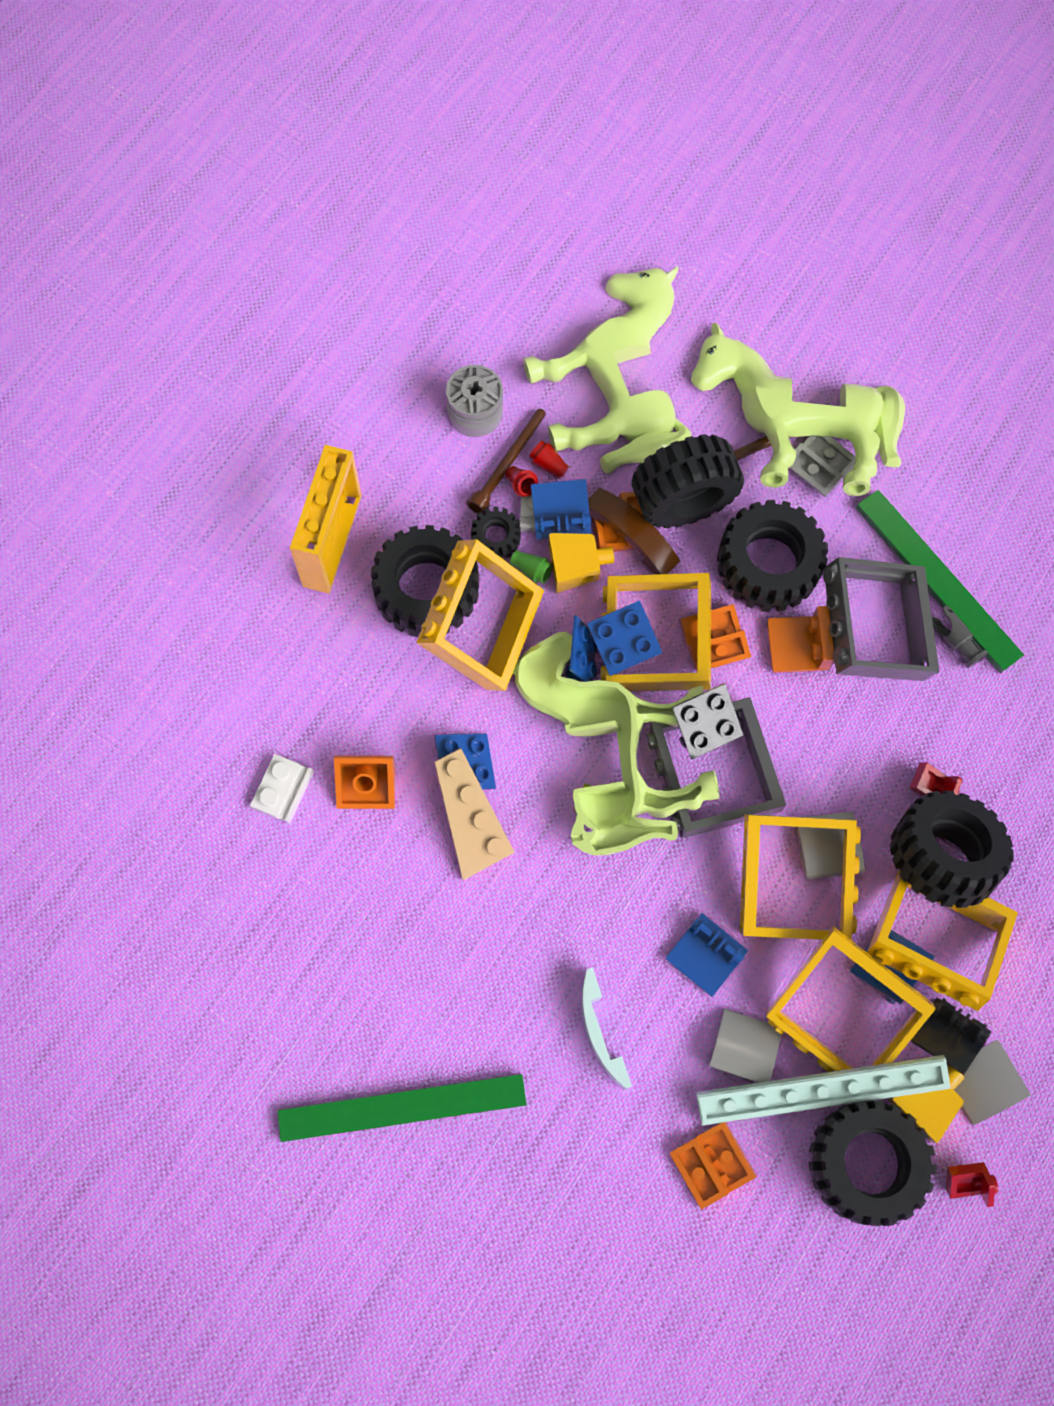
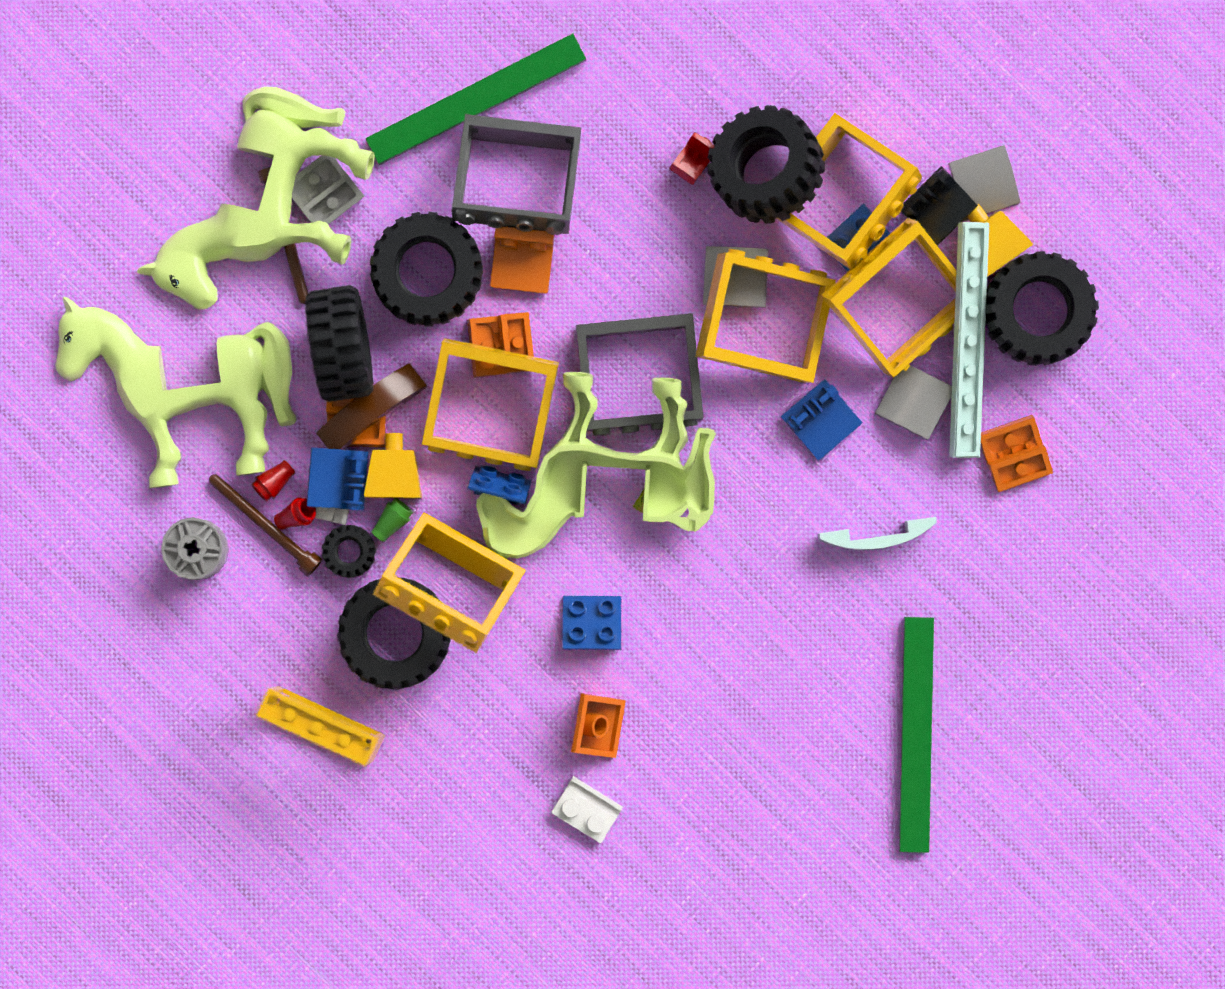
camera: 85 degrees left, 15 degrees up
(472, 822) = (657, 625): tan wing -> none
(624, 638) = (497, 440): blue hinge -> none
(707, 721) = (601, 376): hinge -> none
(960, 638) = (543, 95): dark grey piece -> none
(971, 1181) = (1069, 219): red bracket -> none

